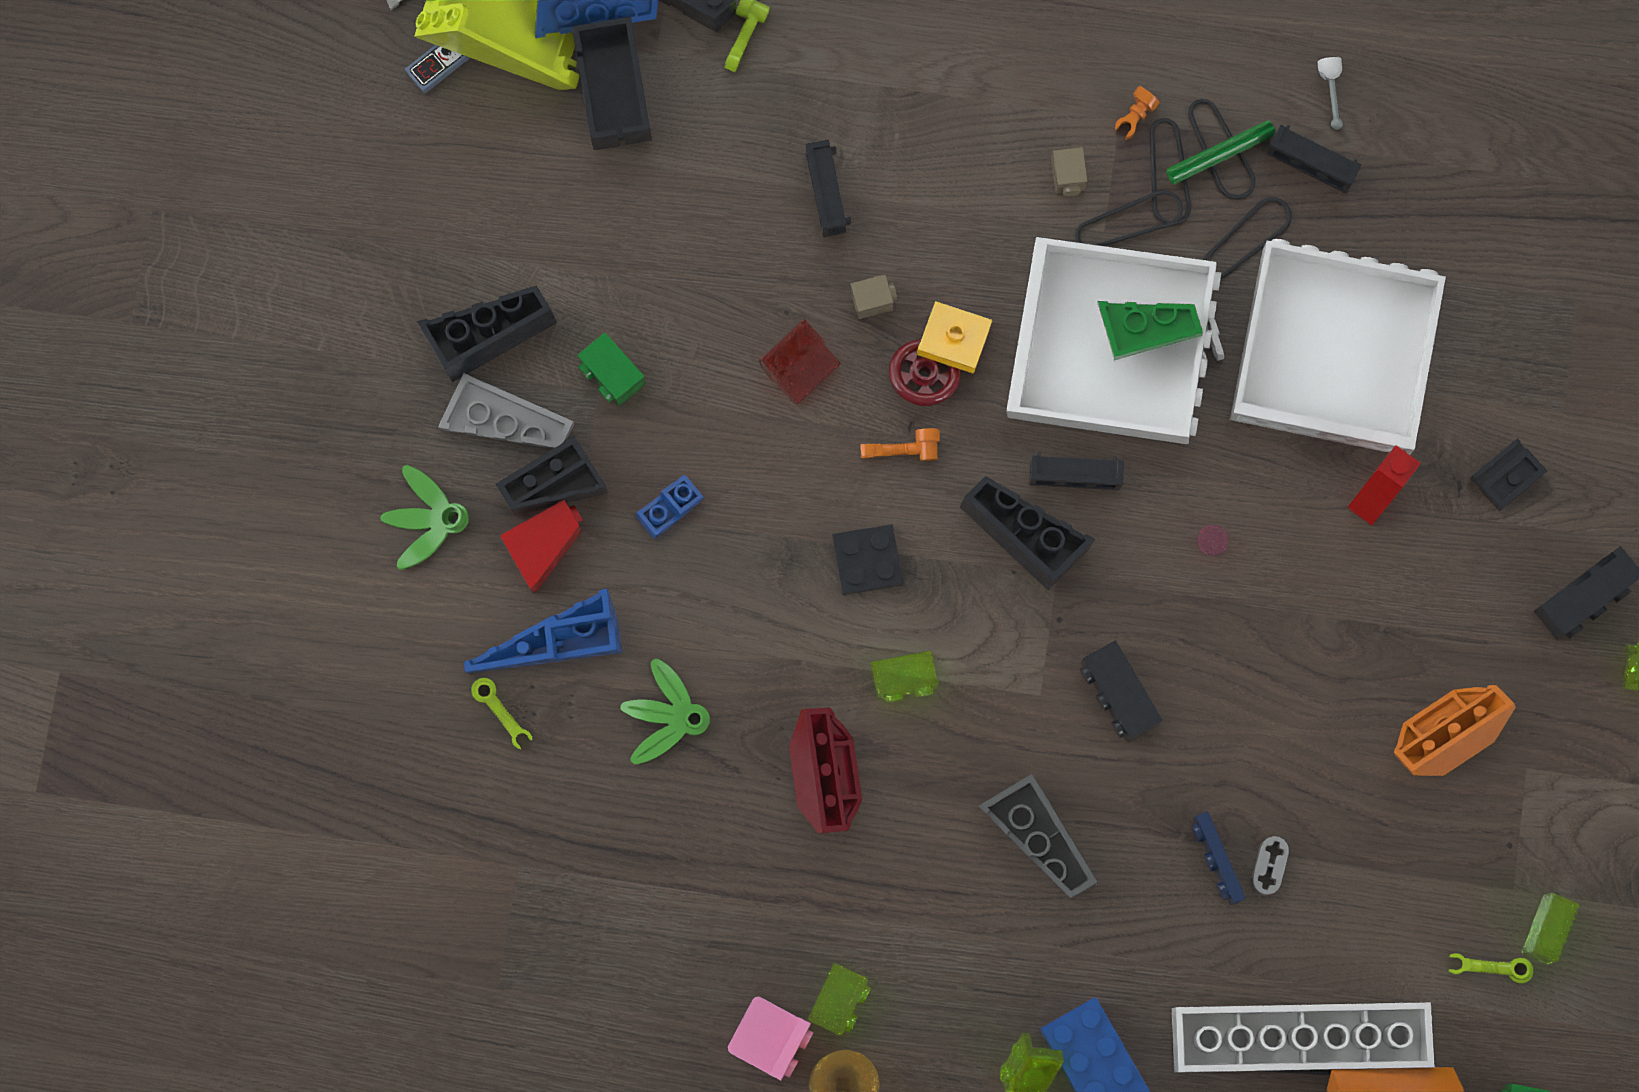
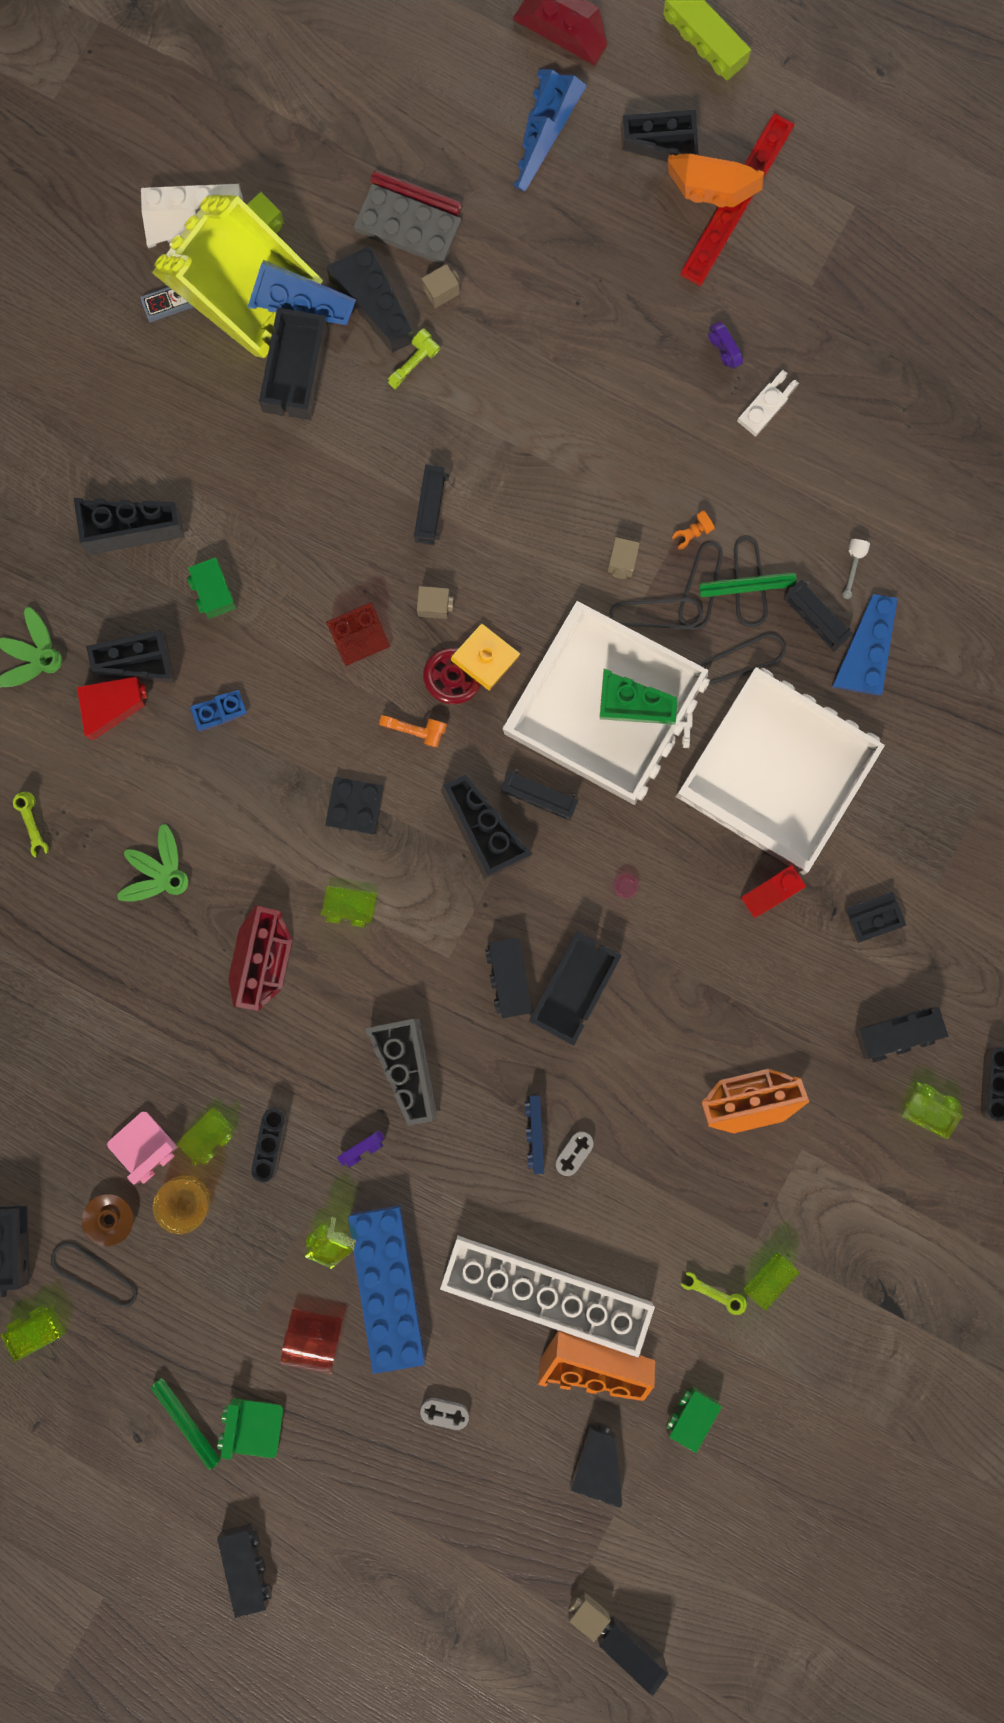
camera: 15 degrees right, 5 degrees up
(498, 415) = (110, 591): light grey wing -> none
(577, 633) = (111, 783): blue wedge -> none
(917, 965) = (261, 1154): none -> black beam
(1034, 937) = (371, 1144): none -> dark purple plate
(1200, 675) = (575, 988): none -> black piece
(1386, 183) = (868, 653): none -> blue wing

